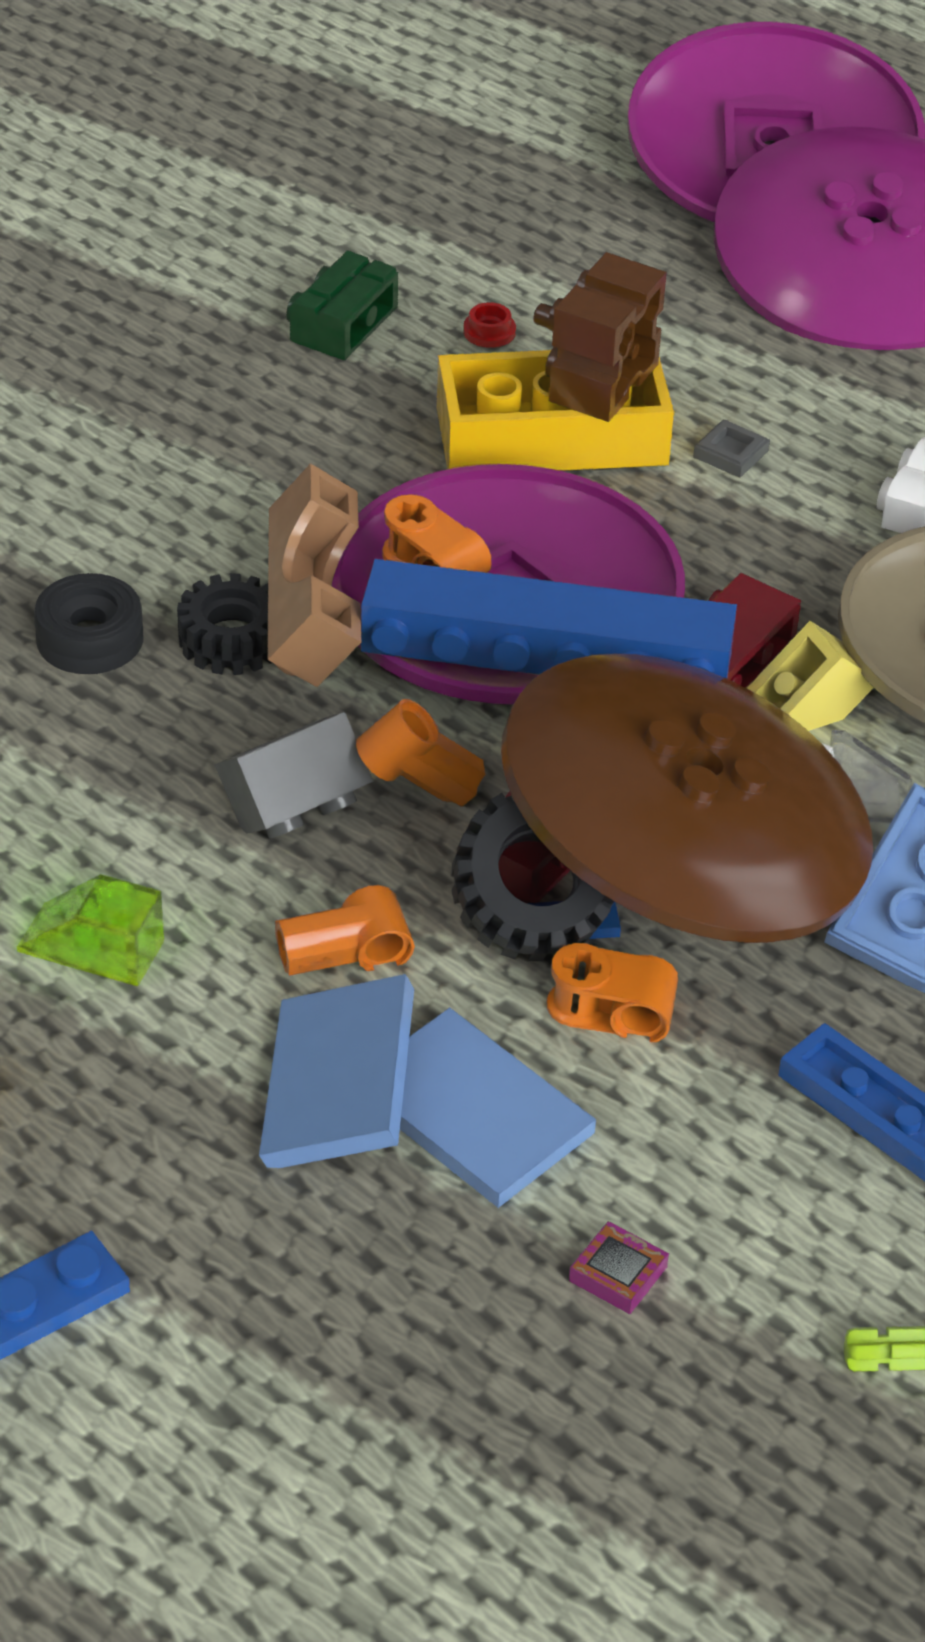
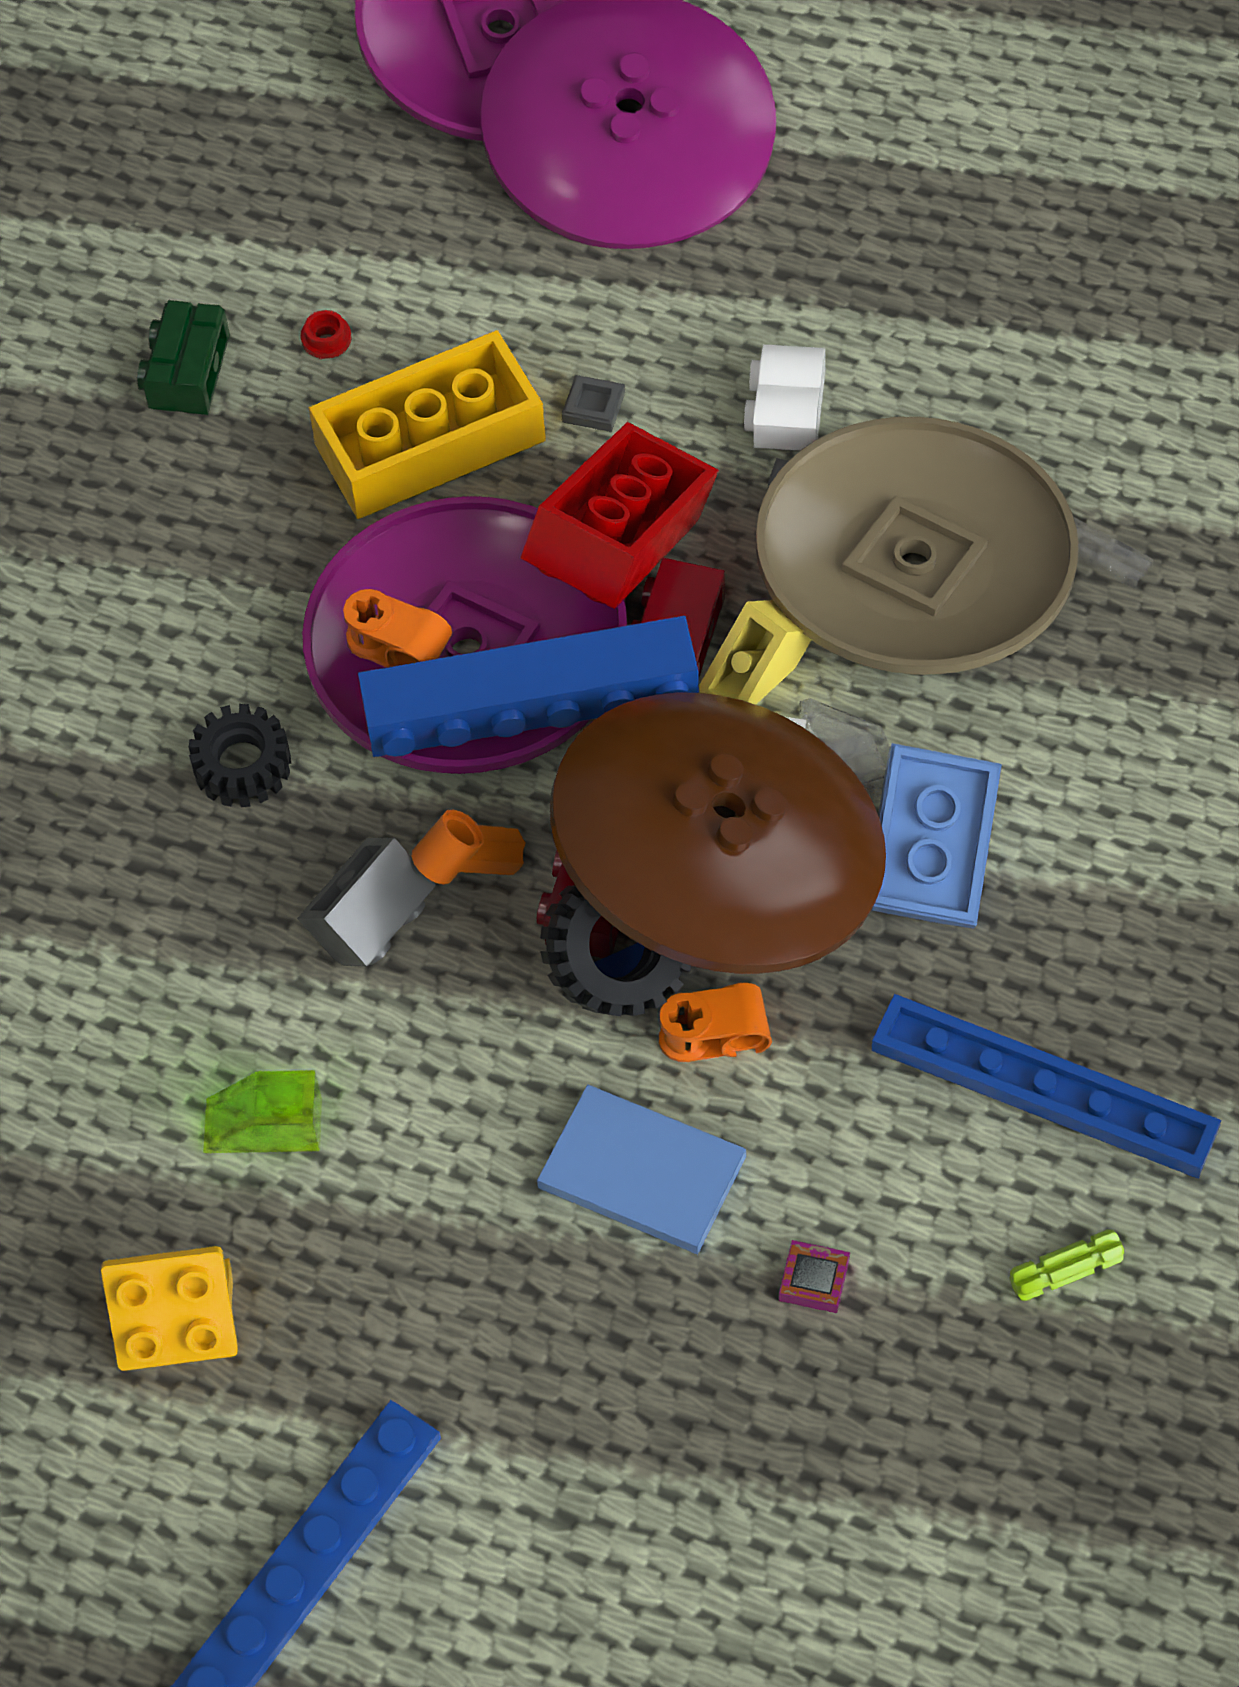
camera: 15 degrees left, 15 degrees up
(93, 647) = (108, 771): black tyre -> none
(308, 619) = (279, 651): medium nougat arch -> none
(338, 1072) = (525, 1182): medium blue tile -> none
(363, 930) = (485, 1036): orange piece -> none
(604, 335) = (460, 356): reddish brown brick -> none
(707, 515) = (618, 515): none -> red brick

